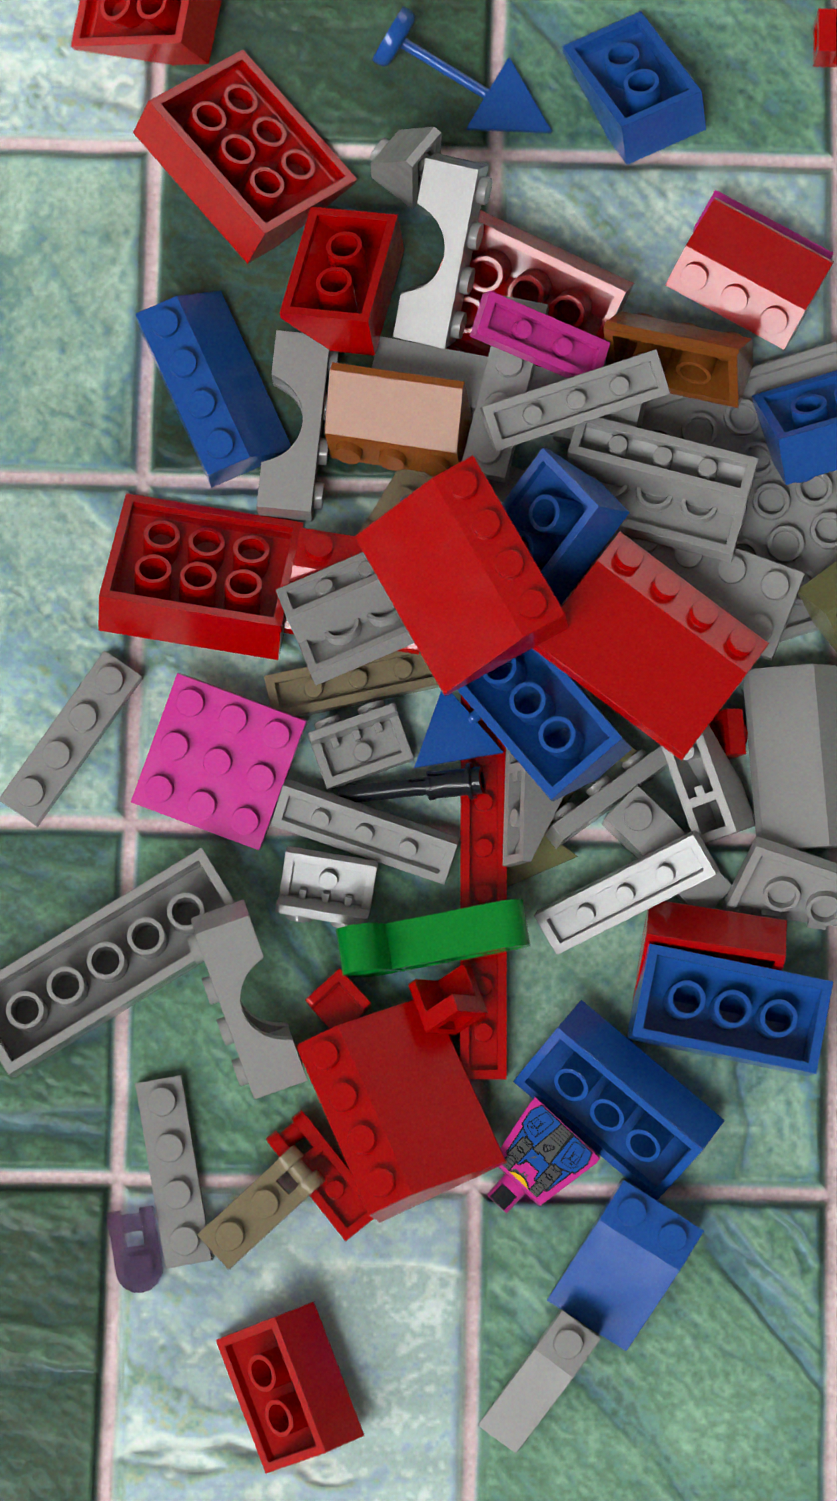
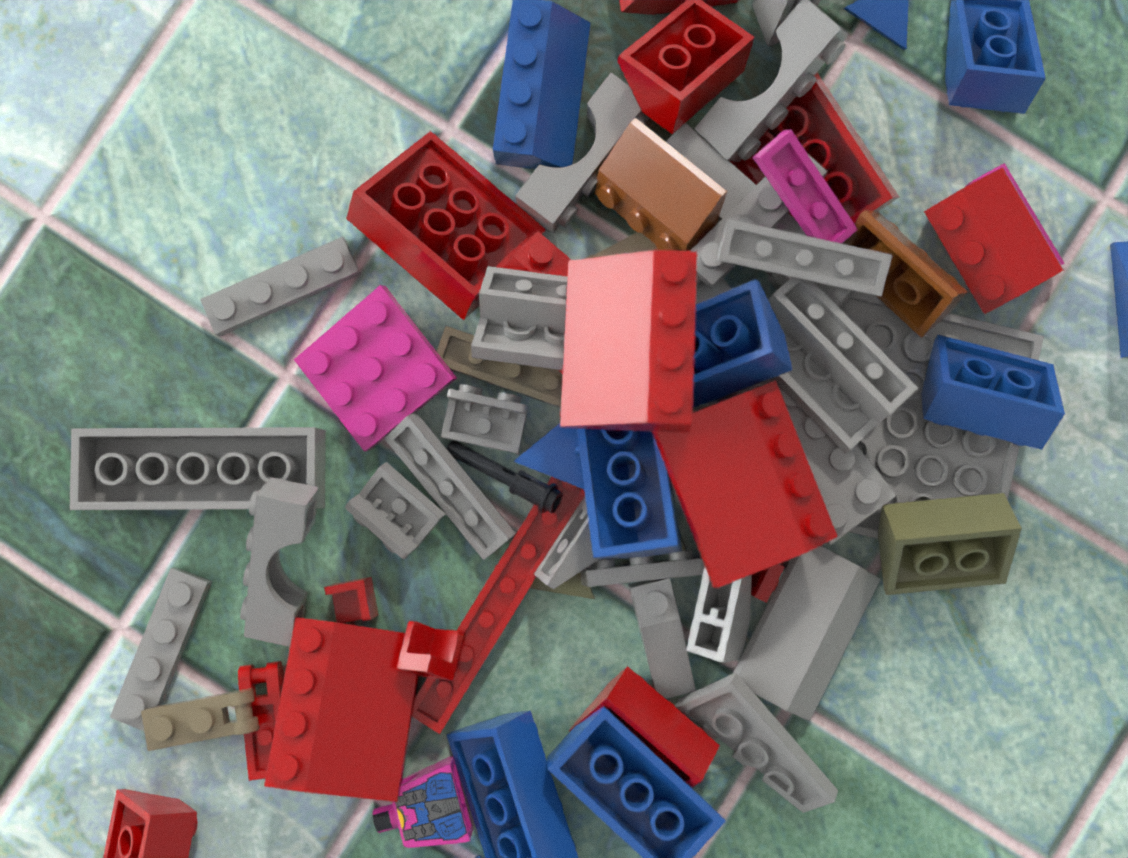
camera: 35 degrees right, 5 degrees up
(137, 1266) = (93, 700): clear purple plate -> none
(432, 939) = (445, 600): green beam -> none
(626, 892) = (613, 653): plate -> none

